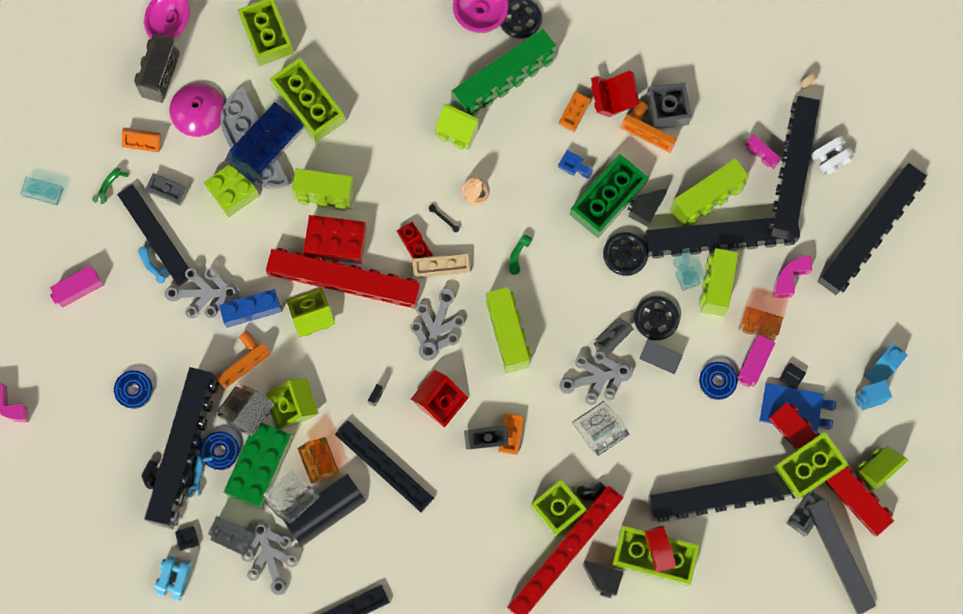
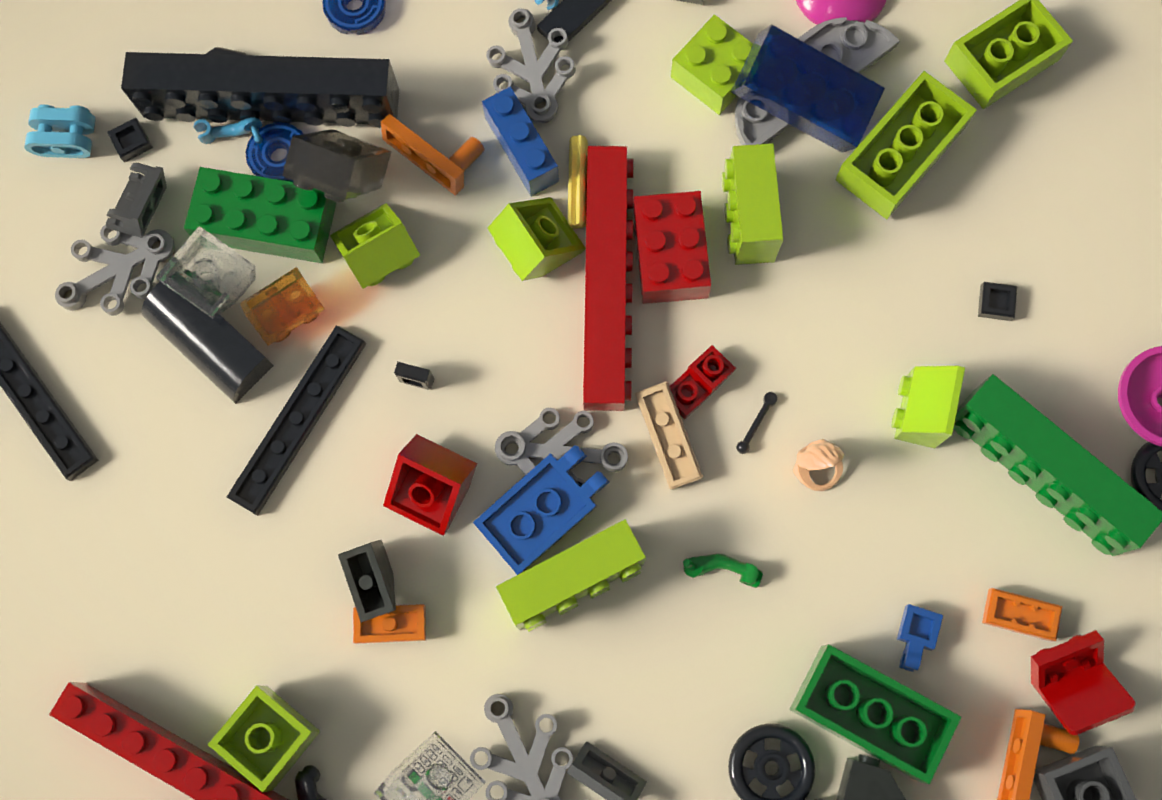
camera: 85 degrees right, 0 degrees up
(281, 282) = (577, 182): none -> light yellow axle
(405, 77) = (997, 301): none -> black tile
(466, 341) = (539, 510): none -> blue tile

